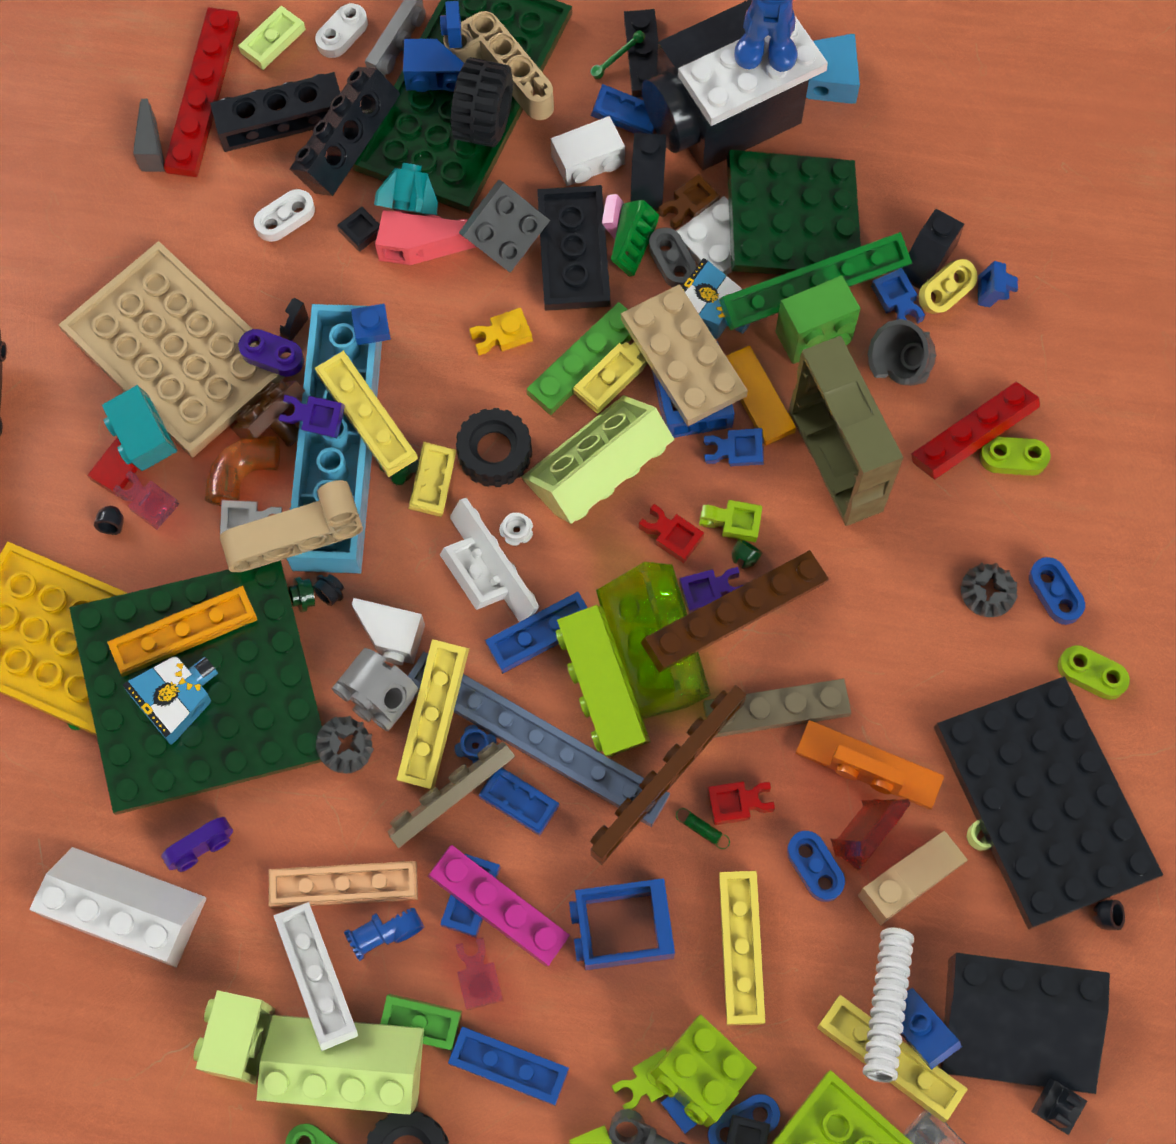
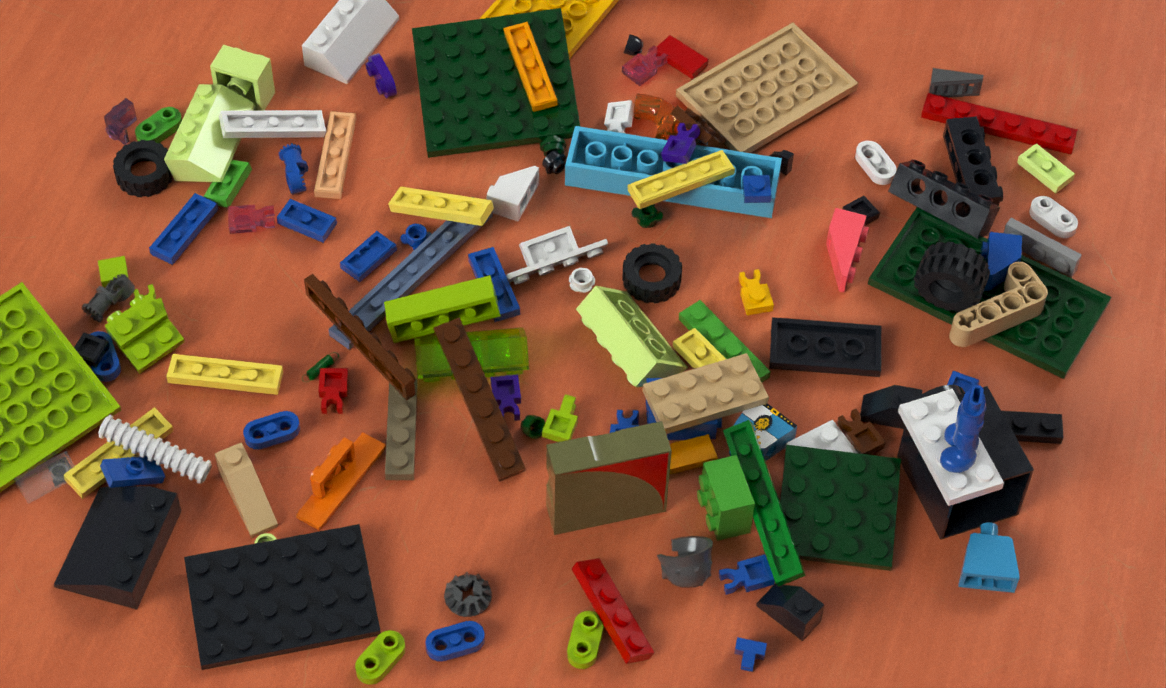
camera: 95 degrees right, 15 degrees down
(138, 428) = (696, 57): teal brick -> none
(172, 694) = (480, 53): torso -> none
(268, 352) = (752, 134): dark purple plate -> none
(294, 530) = (590, 130): tan beam -> none
(328, 745) = (433, 172): dark grey gear -> none
(376, 689) = (466, 172): light grey brick -> none
(407, 191) = (882, 232): teal brick -> none
(432, 479) = (630, 230): light yellow plate -> none
(438, 801) = (386, 218): dark tan plate -> none
(451, 24) = (1027, 261): blue plate -> none
(498, 905) = (292, 231): dark pink plate -> none
(504, 226) = (840, 289): dark grey plate -> none
(588, 151) = (915, 363): white brick -> none
(597, 71) = (1002, 390): green hinge -> none
(612, 213) = (849, 378): bright pink tile -> none
(635, 225) = (831, 377): green slope -> none
(657, 892) = (260, 325): blue window -> none
(674, 260) = (806, 411): dark grey plate -> none
(675, 535) = (556, 380): red plate -> none
(868, 830) = (283, 464): clear red slope -> none
(946, 288) = (754, 615): light yellow plate -> none
(1059, 1106) = (50, 554): black tile -> none
(1109, 915) = (174, 619): black hinge -> none

